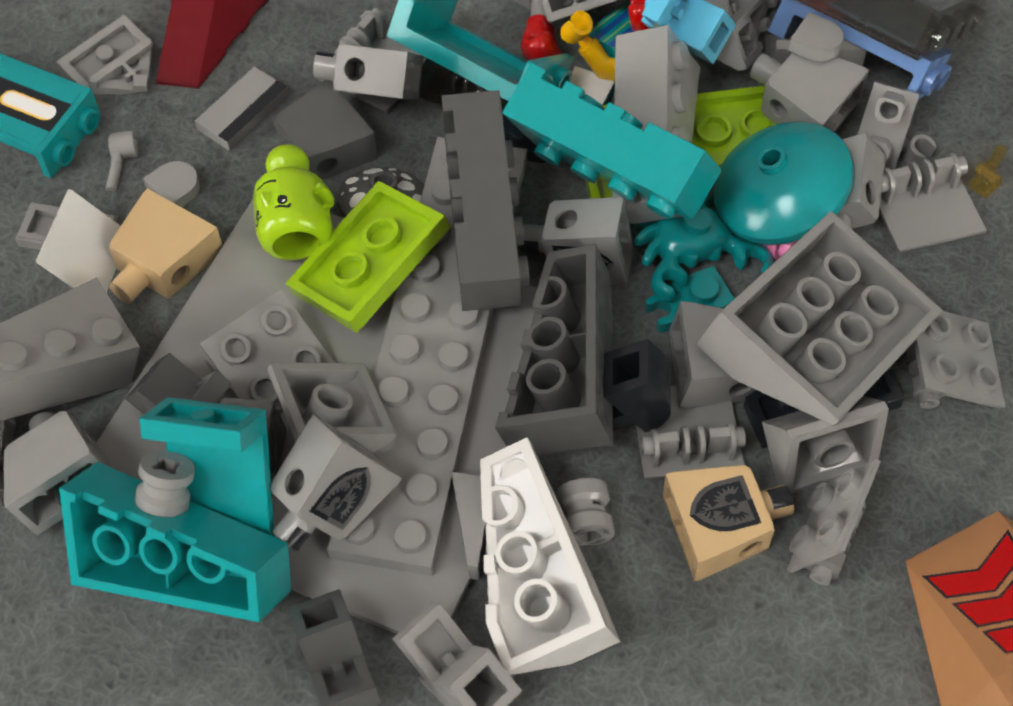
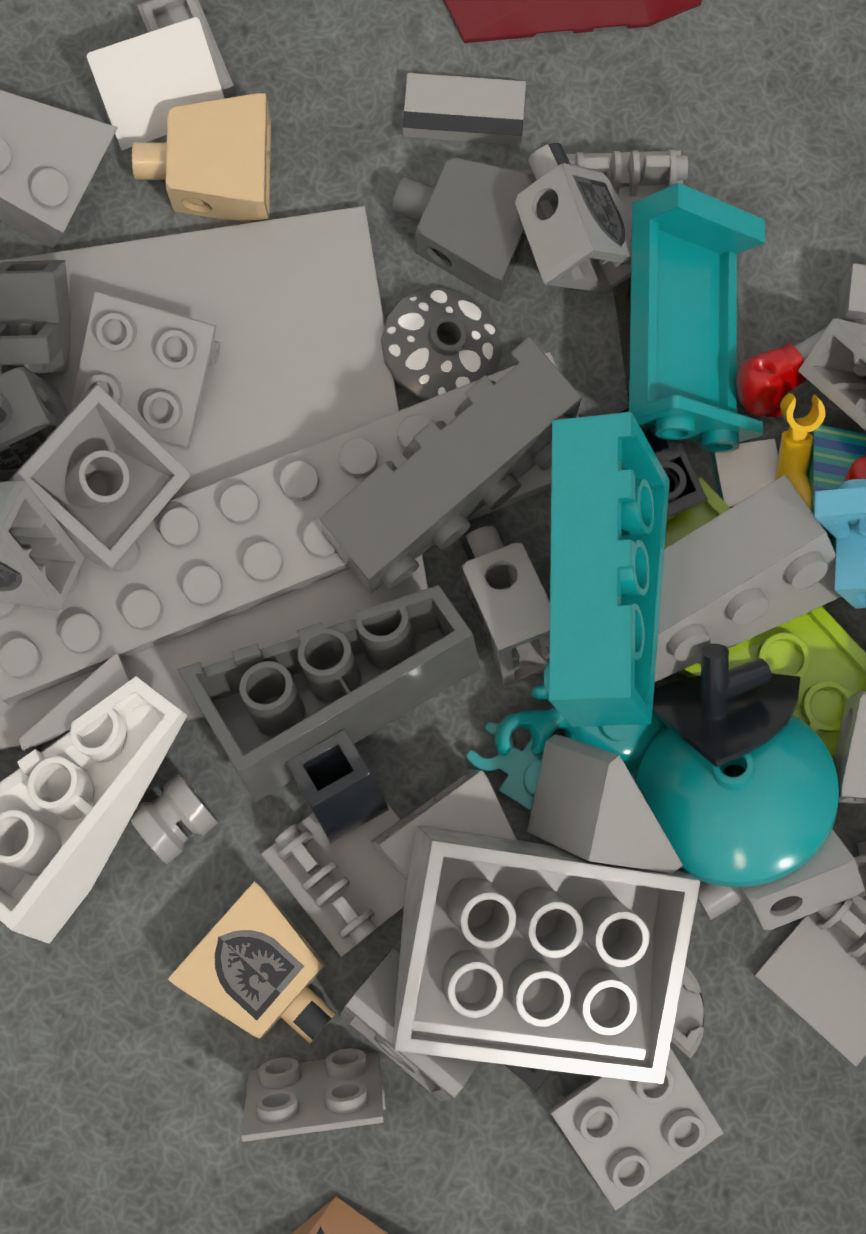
camera: 55 degrees right, 20 degrees up
(120, 146) = (321, 20): light grey hand -> none
(174, 181) = (314, 112): light grey tile -> none
(291, 206) = (337, 260): lime piece -> none
(368, 256) = (325, 387): lime plate -> none
(733, 147) = (726, 709): none -> black shield
(743, 244) = (596, 809): none -> light grey slope

